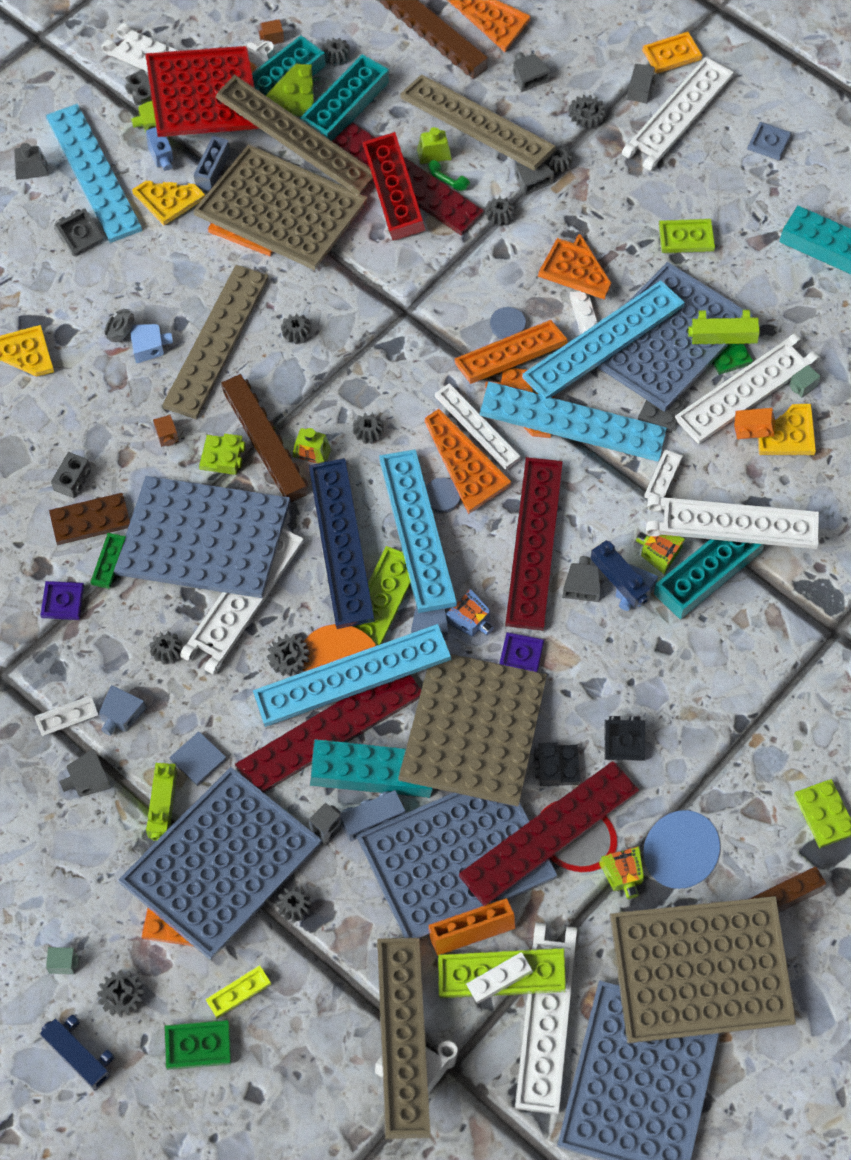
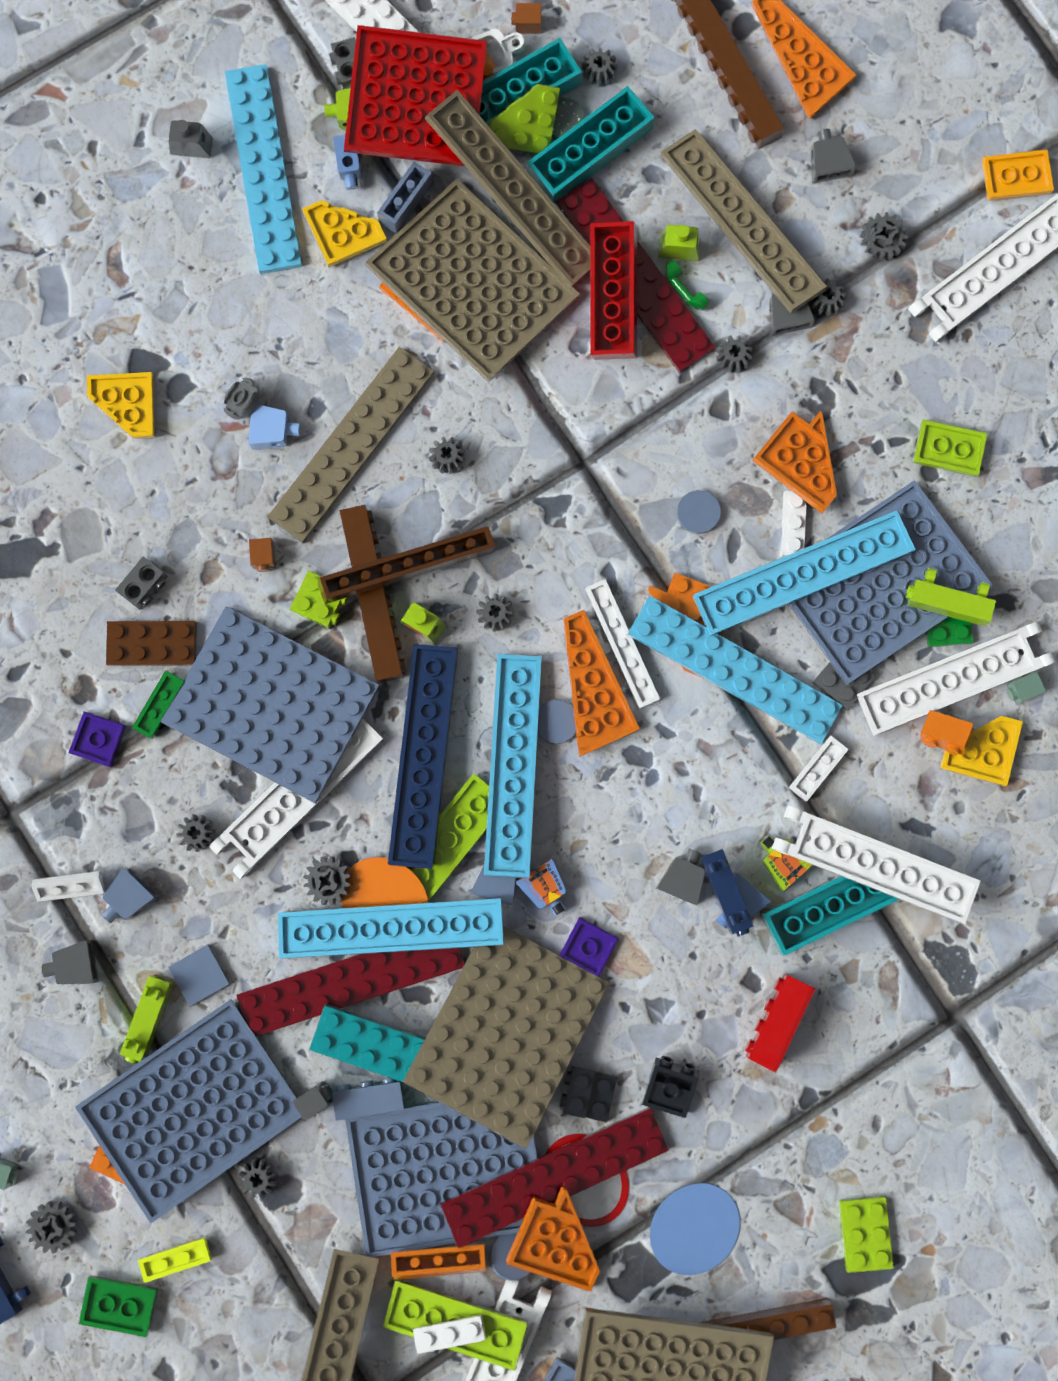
camera: 20 degrees right, 20 degrees up
(78, 231) = (224, 252): dark grey plate -> none
(286, 404) = (405, 565): none -> reddish brown brick
(510, 351) = (690, 555): orange plate -> none
(534, 544) = (643, 813): dark red plate -> none
(534, 907) = (498, 1256): none -> sand blue tile
(567, 882) = (554, 1244): none -> orange wing
(623, 871) = (622, 1242): torso -> none
(641, 82) = (964, 211): dark grey brick -> none
(696, 665) = (779, 1022): none -> red slope

